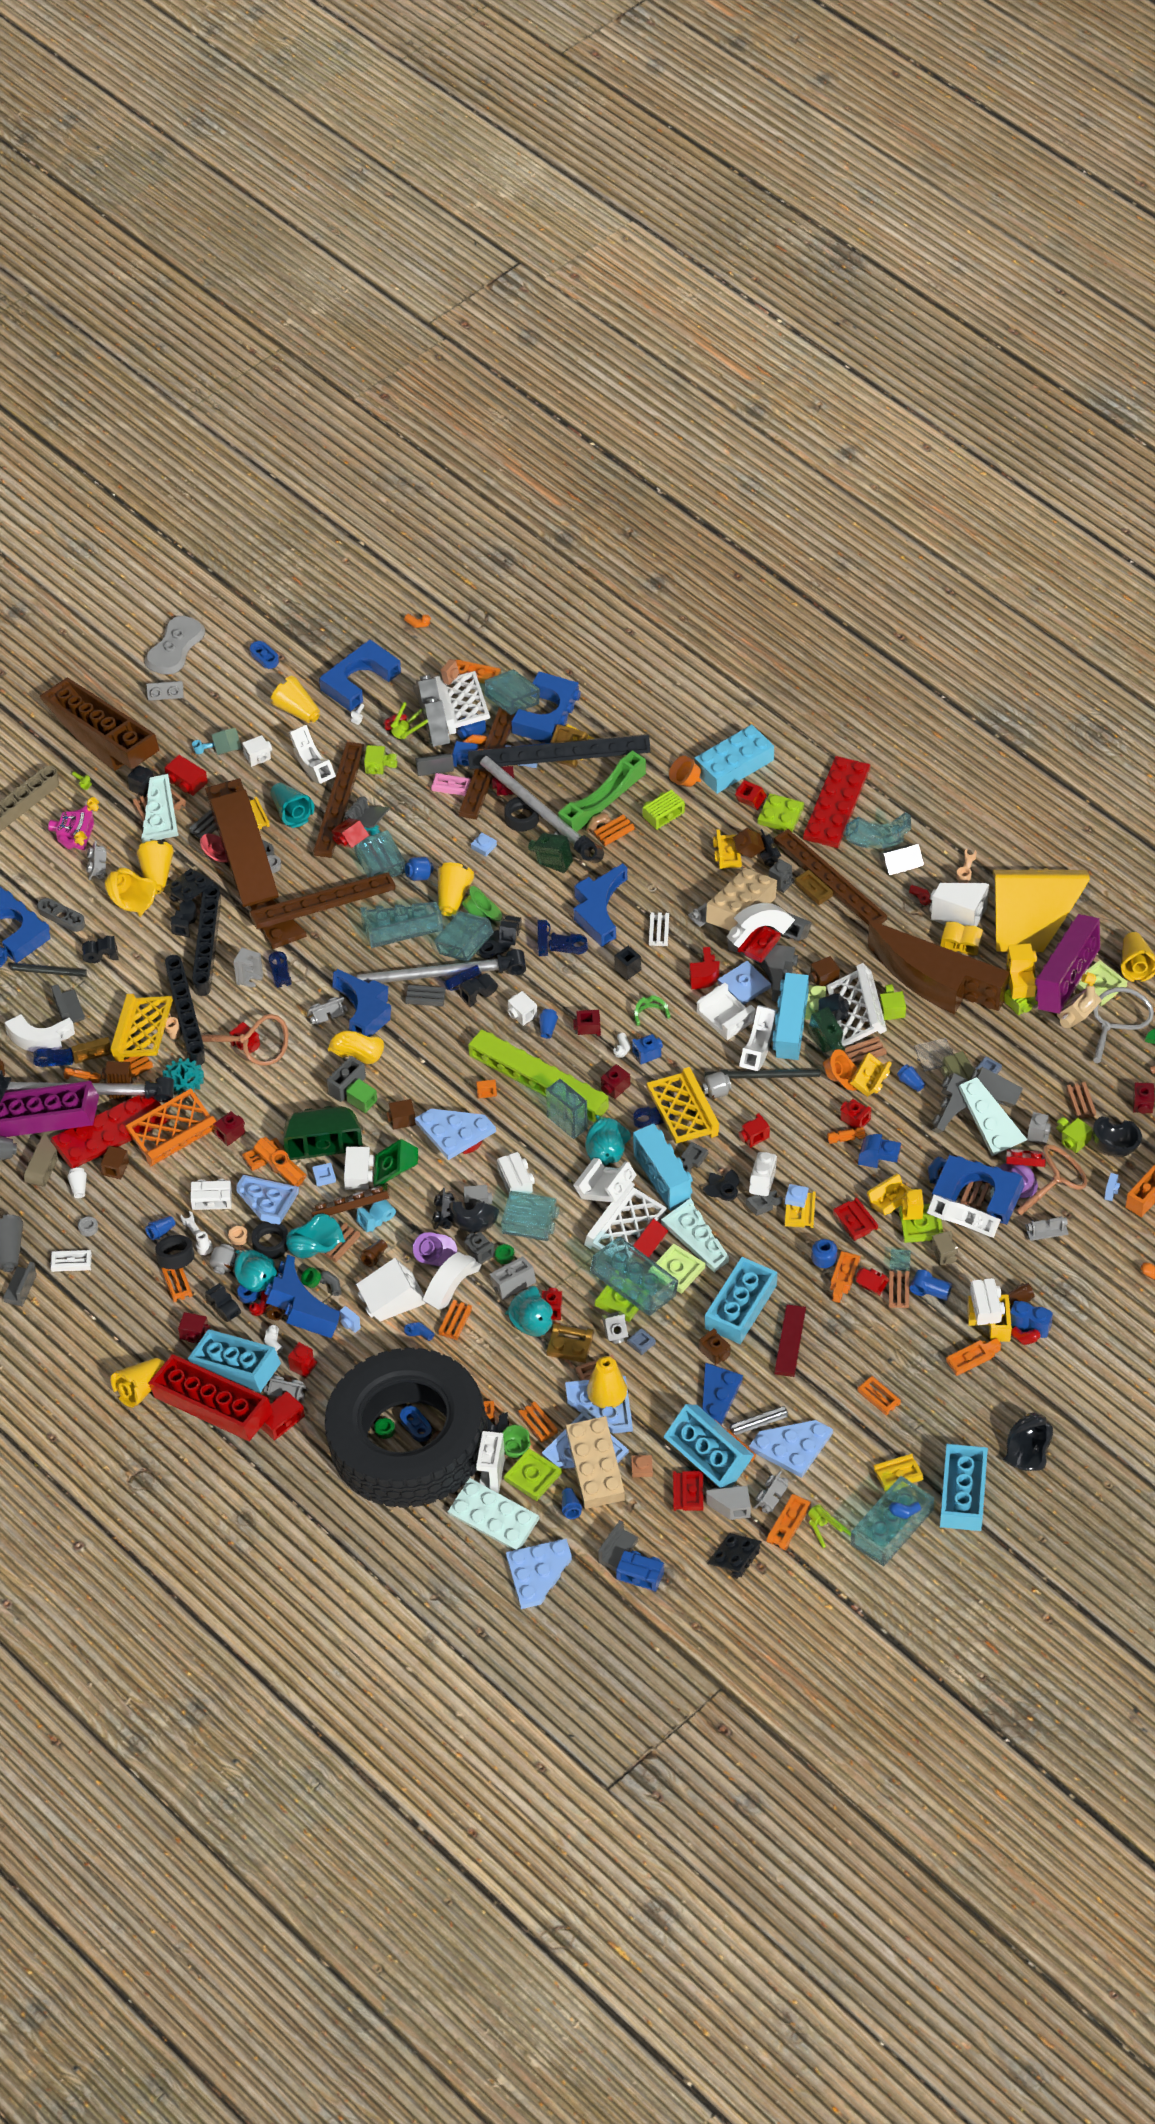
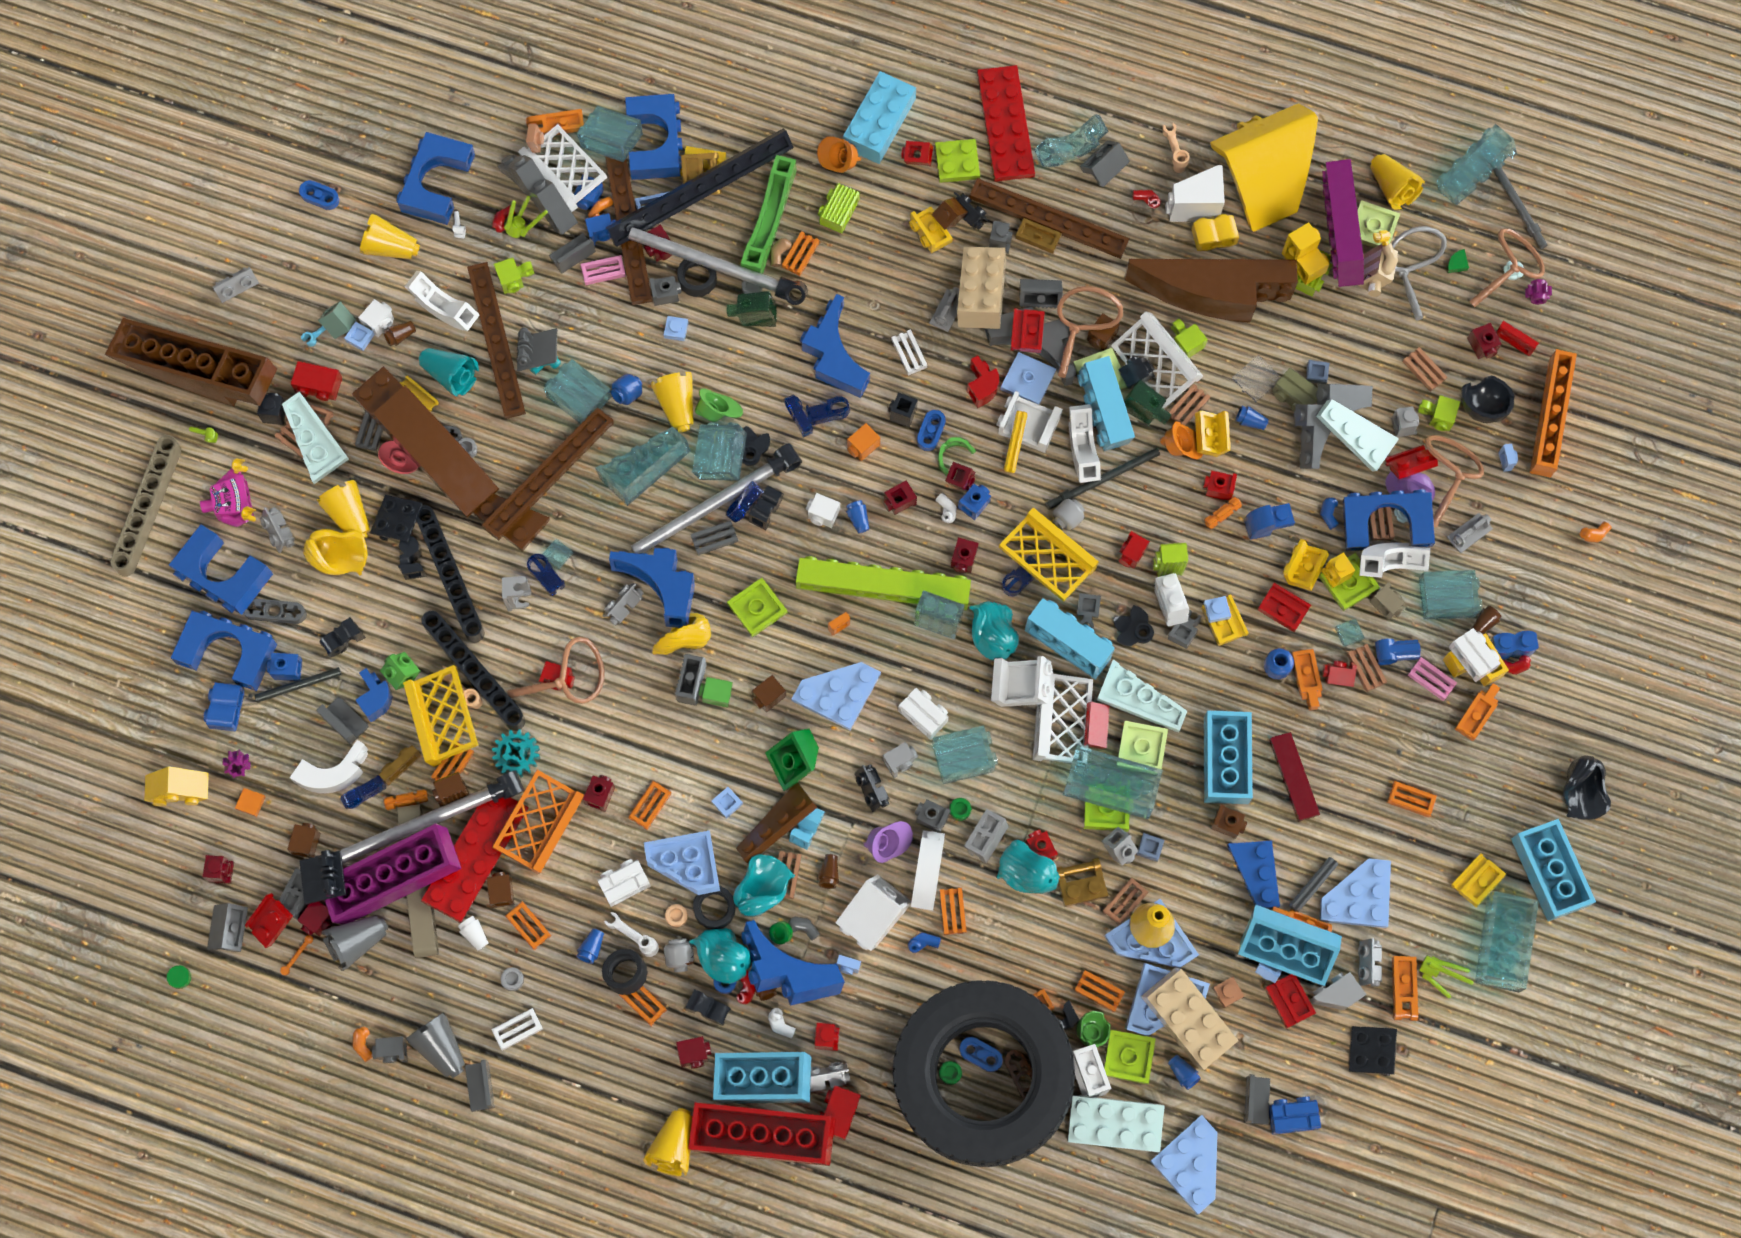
camera: 30 degrees left, 20 degrees up
(37, 887) = (235, 592): none -> blue arch
(46, 952) = (285, 666): none -> blue brick
(100, 1000) = (378, 699): none -> blue brick
(124, 1208) = (540, 940): none -> orange tile
(128, 984) = (399, 669): none -> bright green brick
(171, 652) = (214, 212): light grey plate -> none
(236, 758) = (359, 336): none -> light blue plate
(268, 767) = (397, 333): none -> reddish brown cone
(287, 1170) = (689, 816): orange piece -> none
(298, 959) = (557, 553): none -> clear light blue tile
(321, 1132) = (700, 754): dark green hips -> none
(349, 833) = (536, 382): brick -> none
(357, 1168) = (758, 779): white brick -> none
(418, 623) = (461, 87): orange arm -> none
(429, 1053) = (757, 607): none -> lime plate
(474, 1220) = (912, 787): black cylinder -> none
(490, 814) = (661, 294): none -> dark grey brick
(509, 930) = (762, 423): black leg -> none
(582, 974) = (863, 442): none -> orange brick
(642, 988) = (931, 431): none -> blue plate
(648, 1027) = (964, 478): none -> dark red brick
(682, 1462) = (1268, 972): none -> light blue plate
(705, 1019) = (1015, 442): none -> yellow axle
(756, 916) = (1016, 309): white arch -> none
(781, 1143) = (1170, 559): none -> lime brick
(799, 956) = (1074, 329): none -> nougat piece
(904, 1511) = (1521, 933): blue arm -> none
(942, 1306) = (1433, 679): none -> bright pink tile
(1001, 1262) = (1450, 594): none -> clear light blue brick

